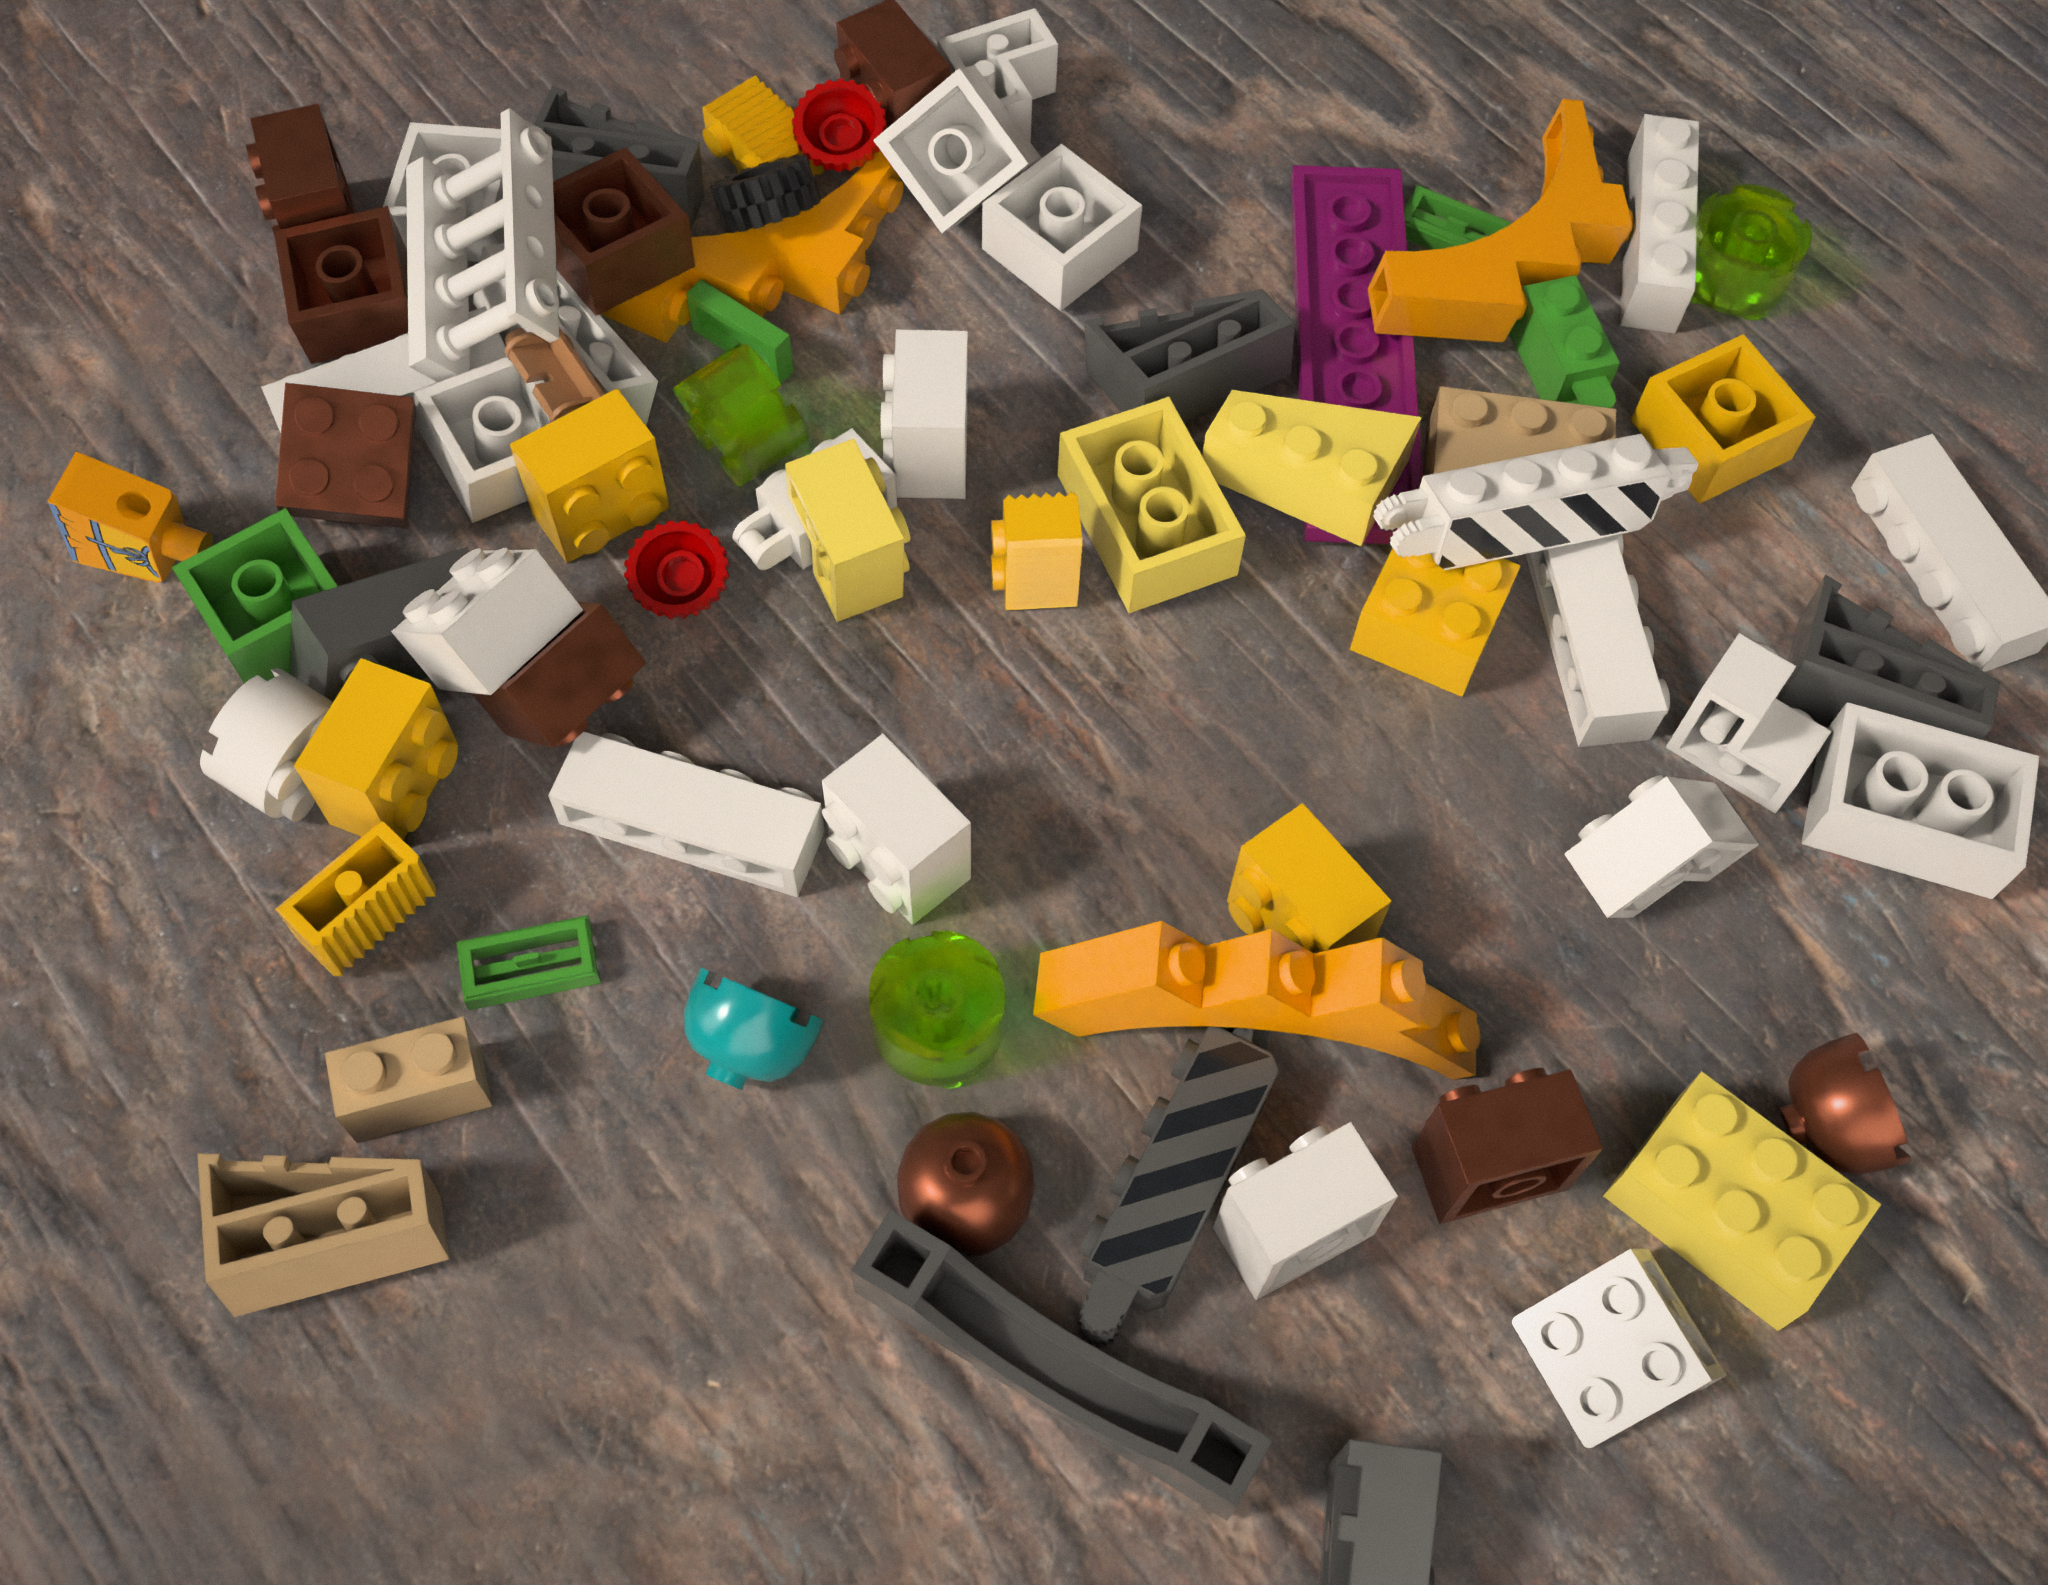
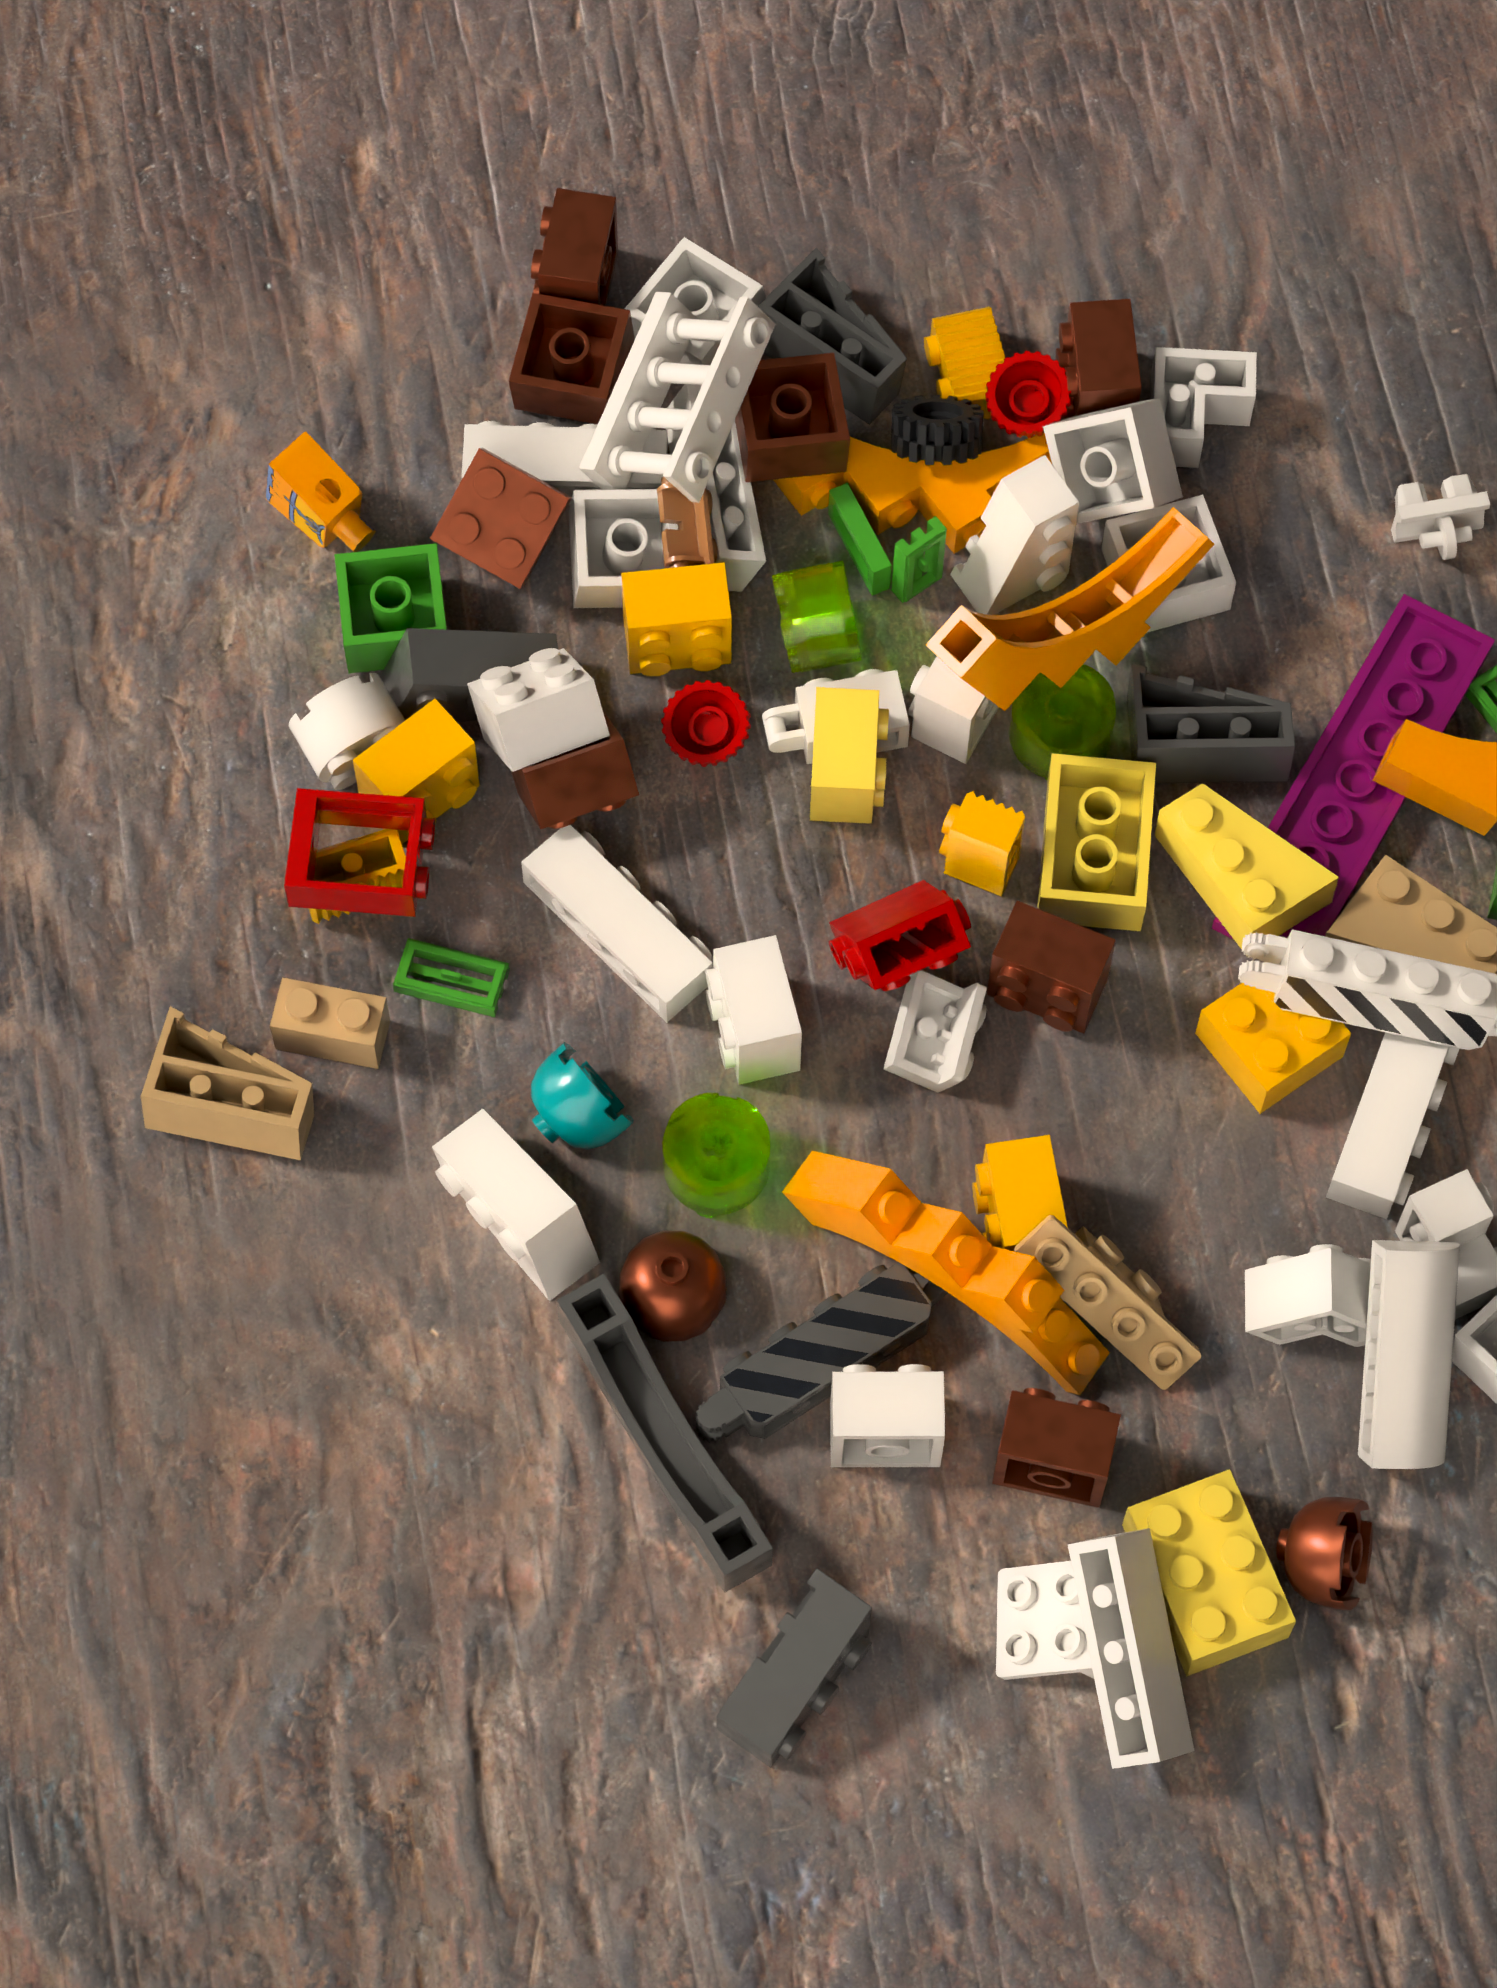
camera: 30 degrees right, 5 degrees up
(329, 817) = (357, 810): none -> red window
(736, 1178) = (517, 1203): none -> white wedge
(814, 318) = (911, 562): none -> bright green tile
(914, 246) = (1023, 542): none -> white wedge
(1009, 681) = (900, 936): none -> red brick
(1034, 286) = (1103, 614): none -> light orange arch
(1036, 398) = (1062, 720): none -> clear neon green brick
(1097, 766) = (935, 1031): none -> white bracket
(1182, 641) = (1050, 968): none -> copper brick
(1281, 96) = (1439, 521): none -> white hips
(1464, 951) = (1112, 1298): none -> tan bracket
(1738, 1337) = (1131, 1648): none -> white brick
(1795, 854) = (1408, 1354): none -> white brick

